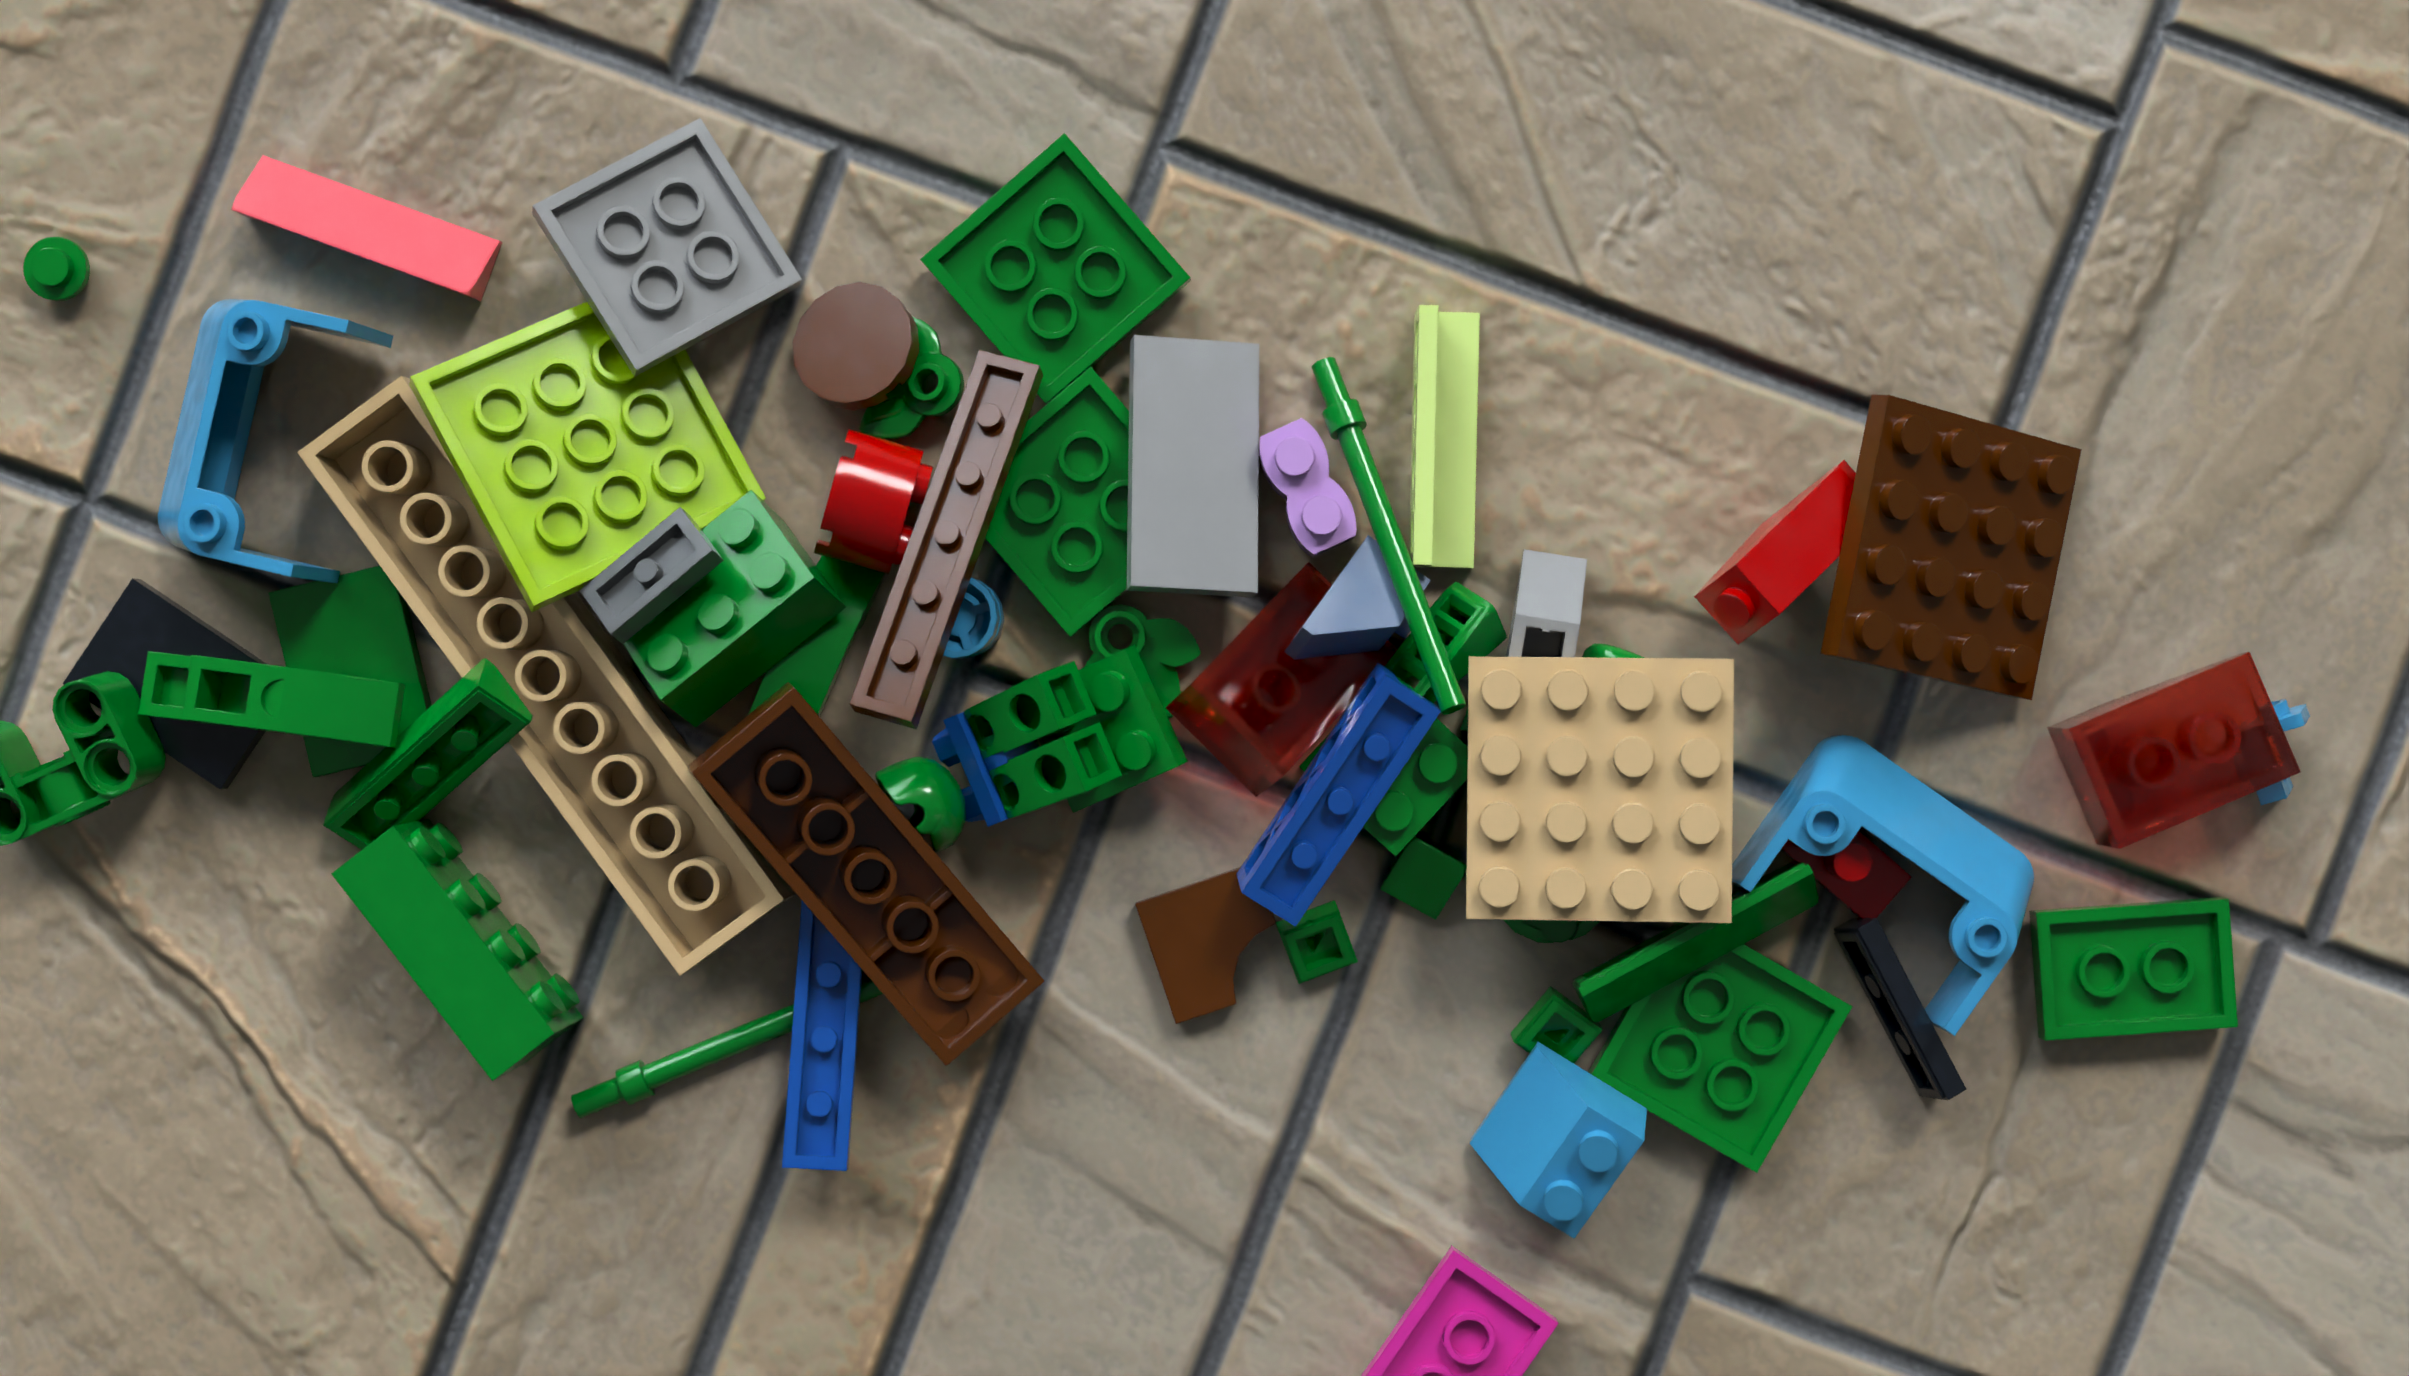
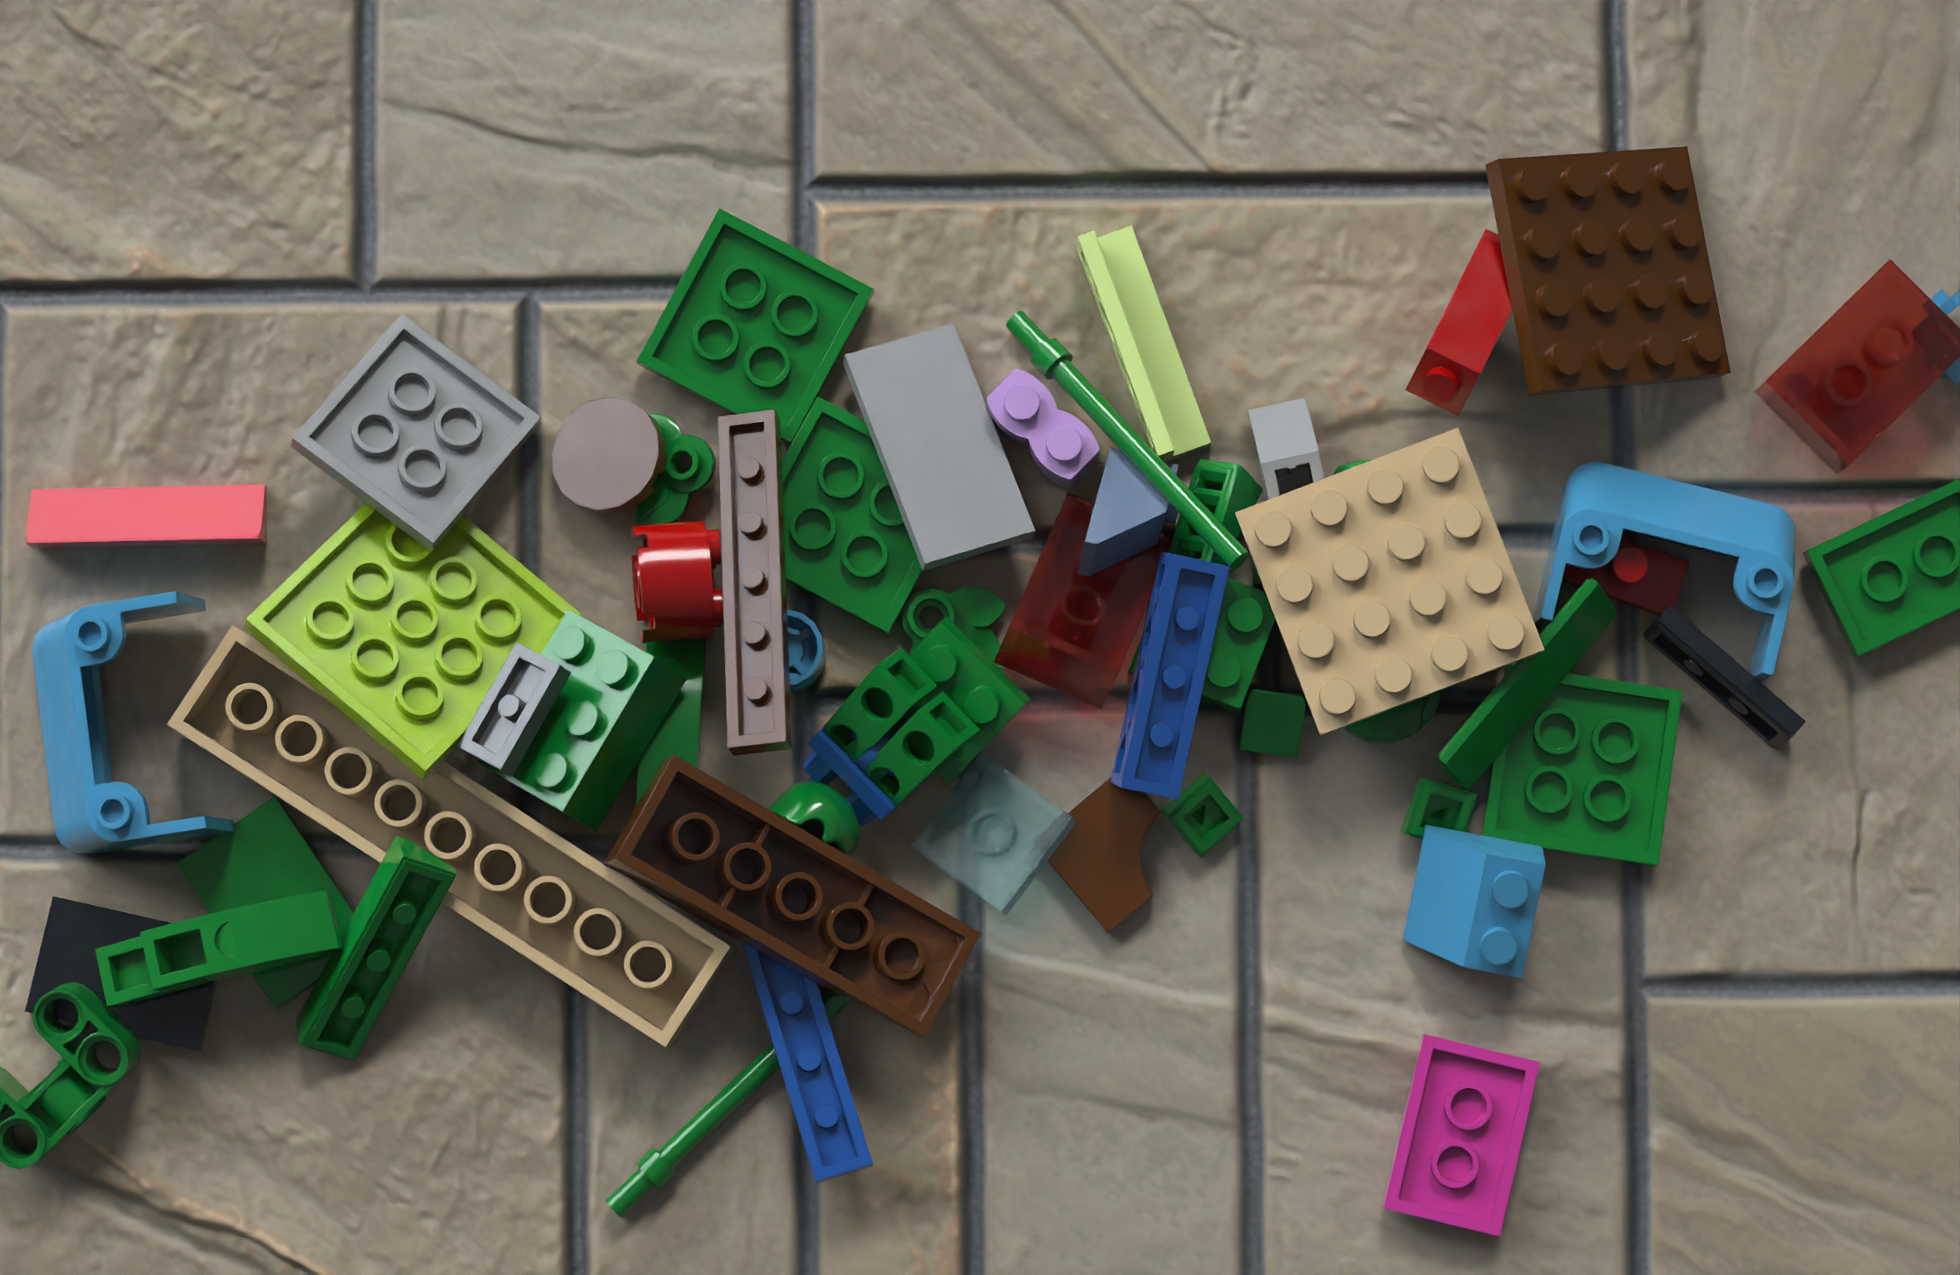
camera: 20 degrees left, 5 degrees down
(459, 945) = (461, 1099): green brick -> none
(1099, 881) = (994, 834): none -> clear light blue plate

